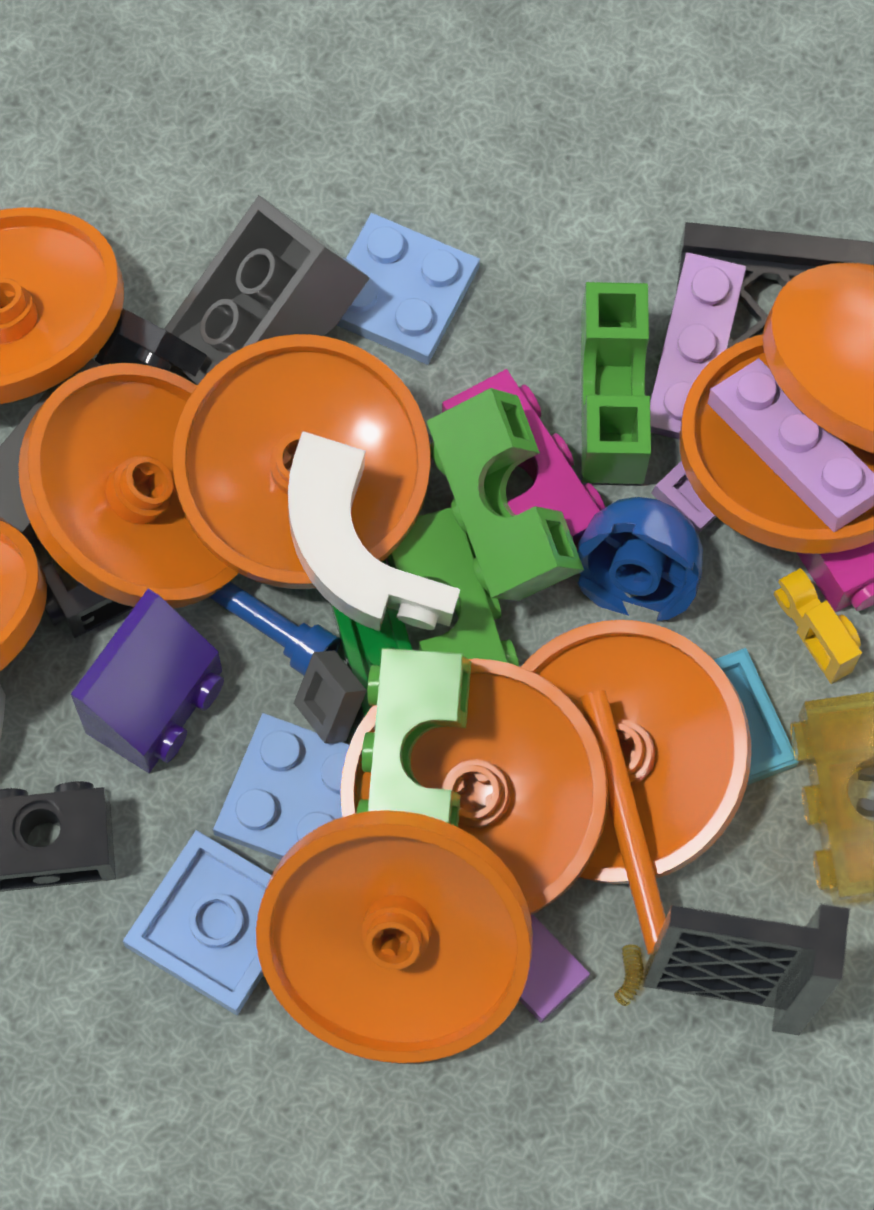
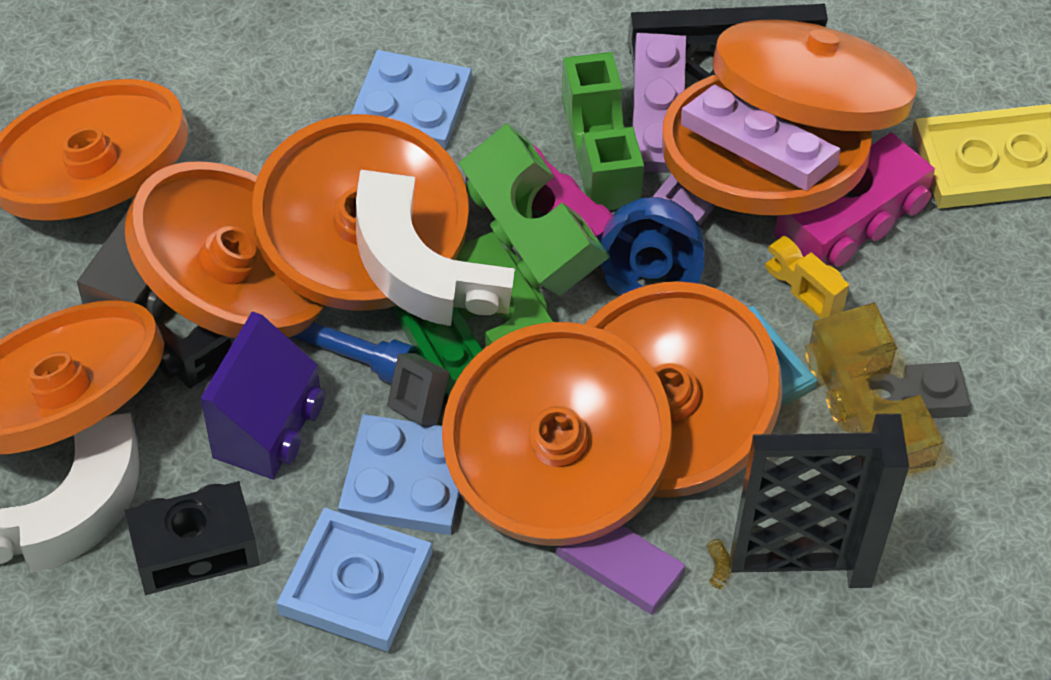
camera: 10 degrees left, 15 degrees down
(148, 344) = (221, 149): black bracket -> none
(264, 285) = (301, 88): dark grey slope -> none
(394, 936) = (515, 545): orange dish -> none
(412, 696) = (506, 449): arch -> none
(626, 819) = (693, 439): orange bar -> none

